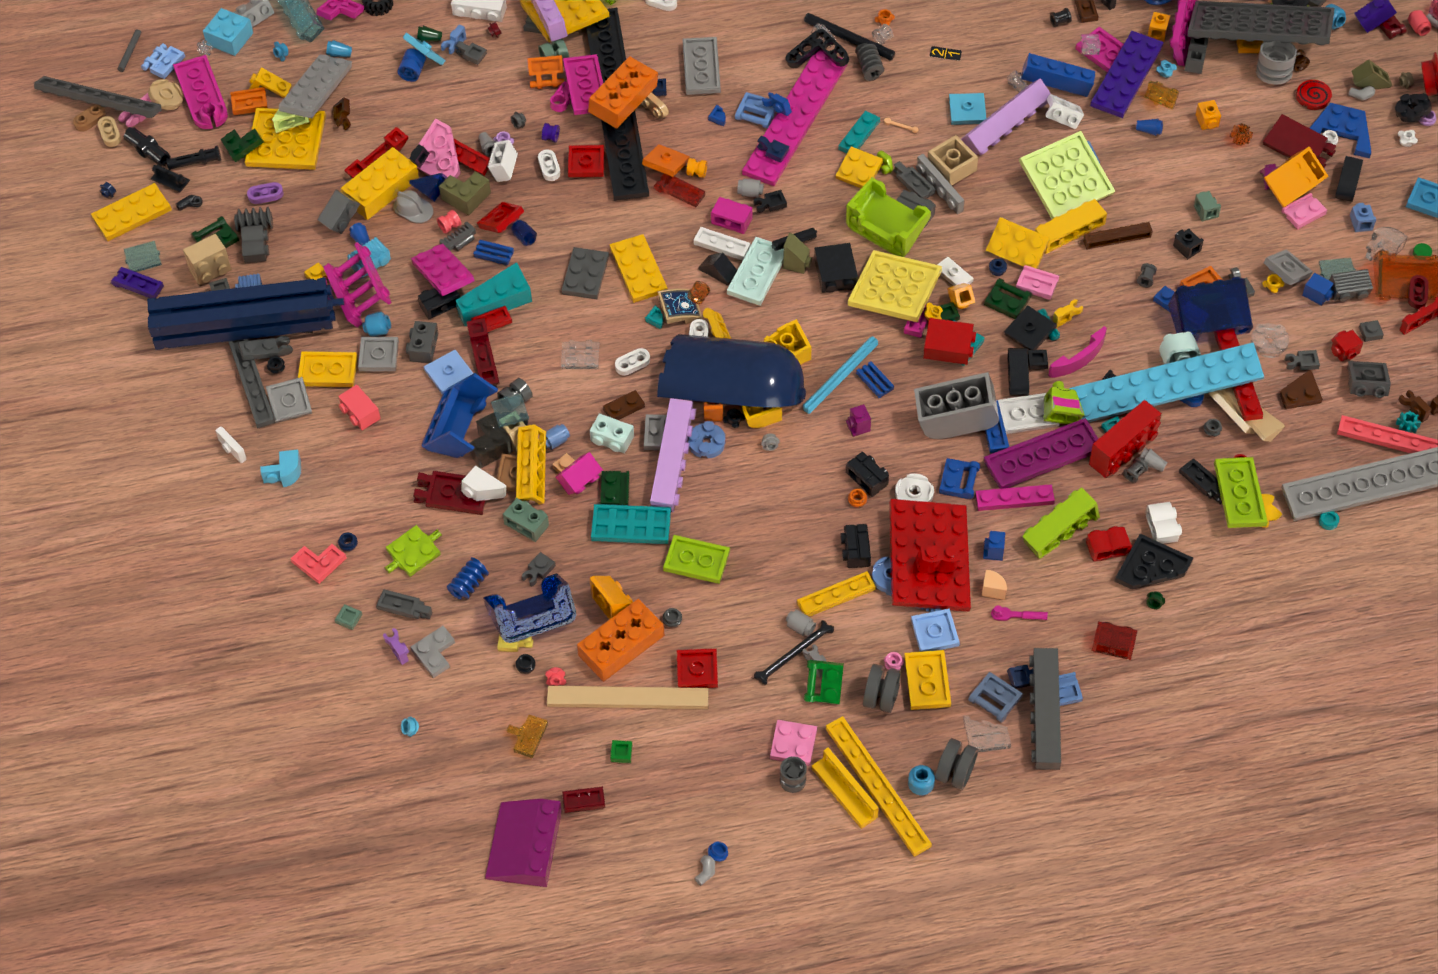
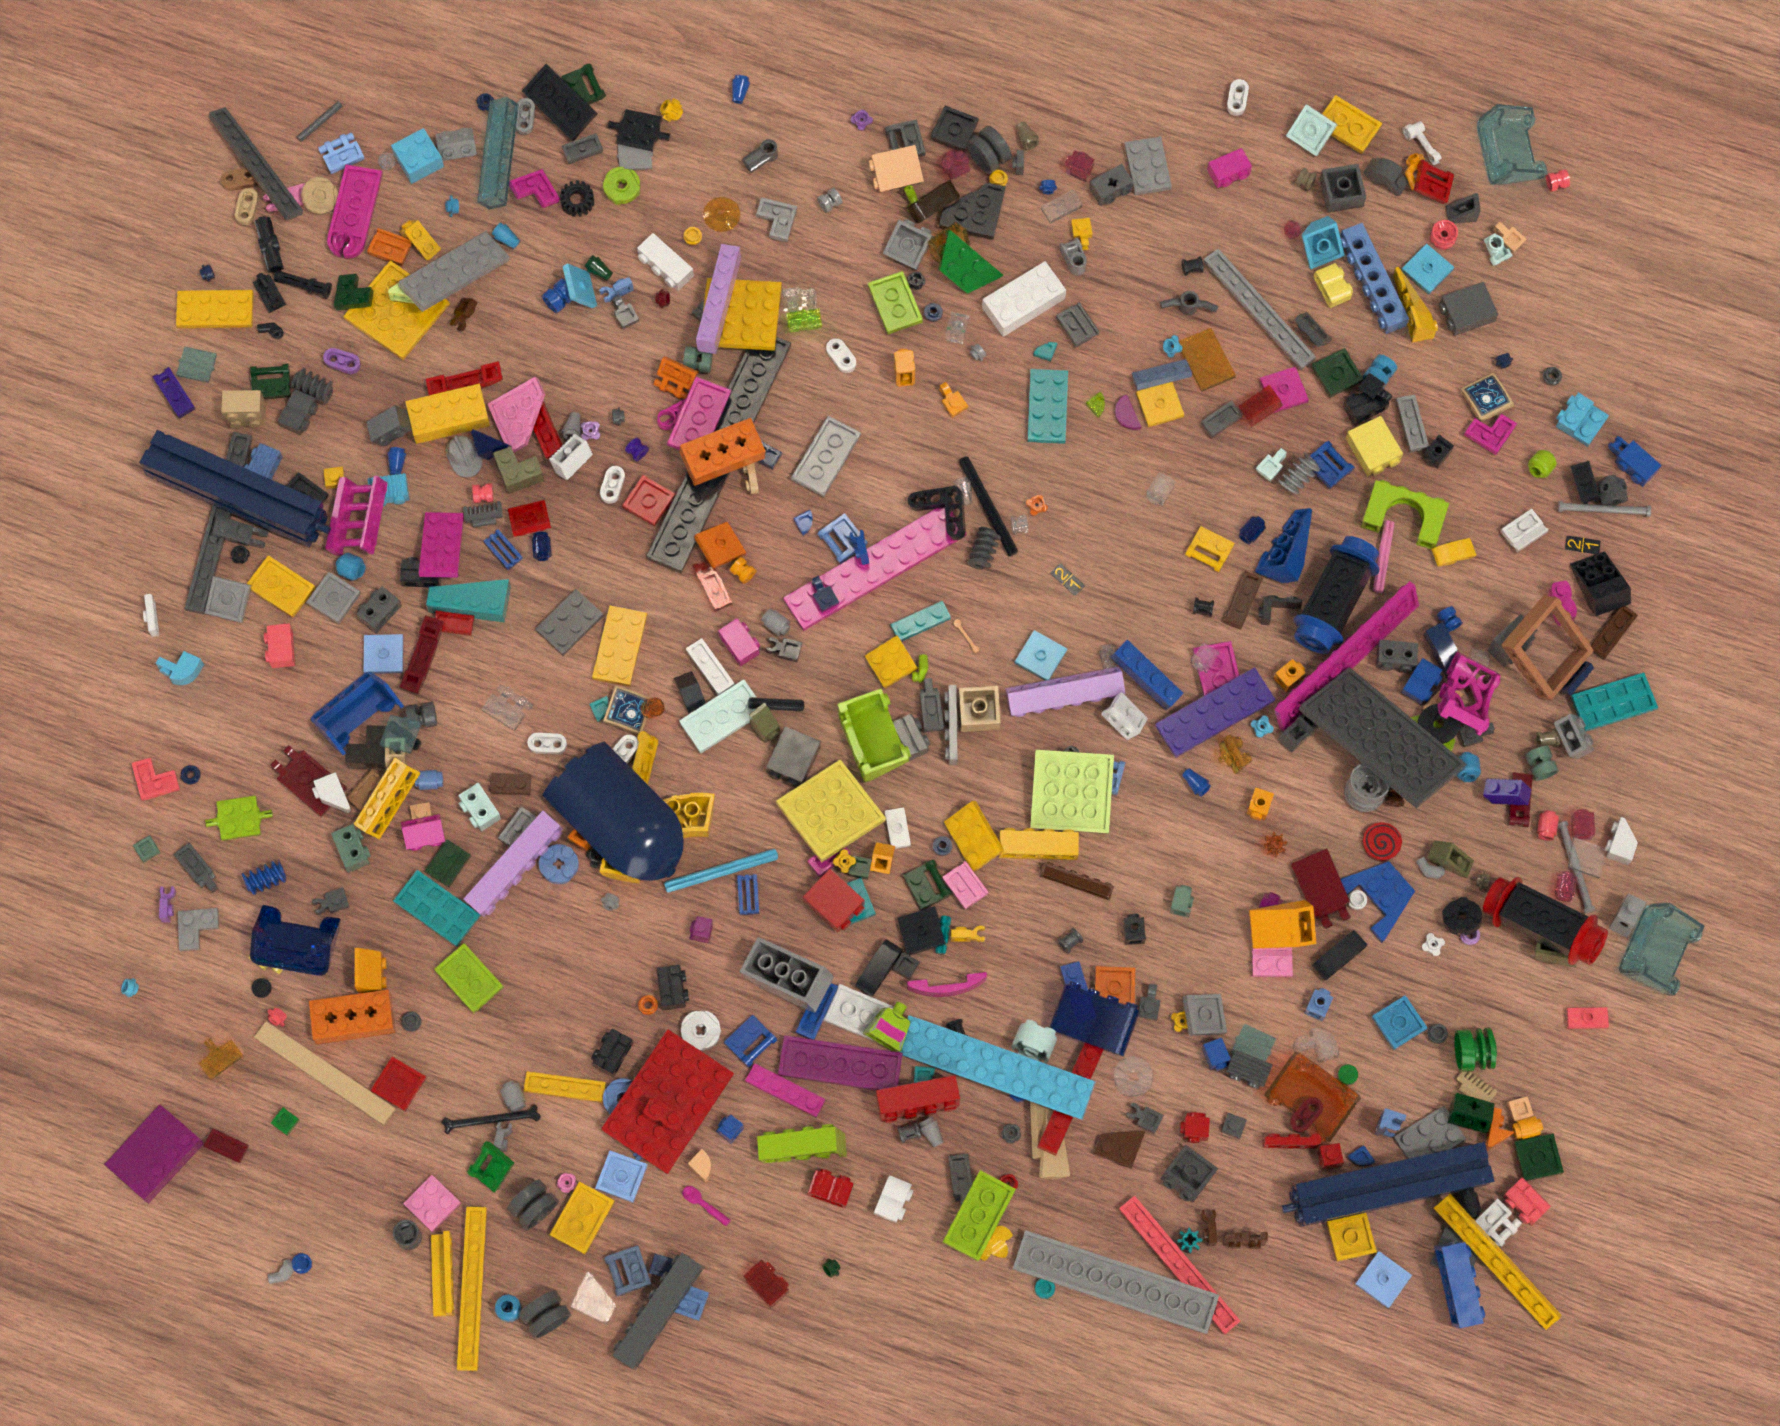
camera: 30 degrees right, 15 degrees up
(419, 155) = (496, 407): black plate -> none
(1152, 563) = (854, 1232): black plate -> none

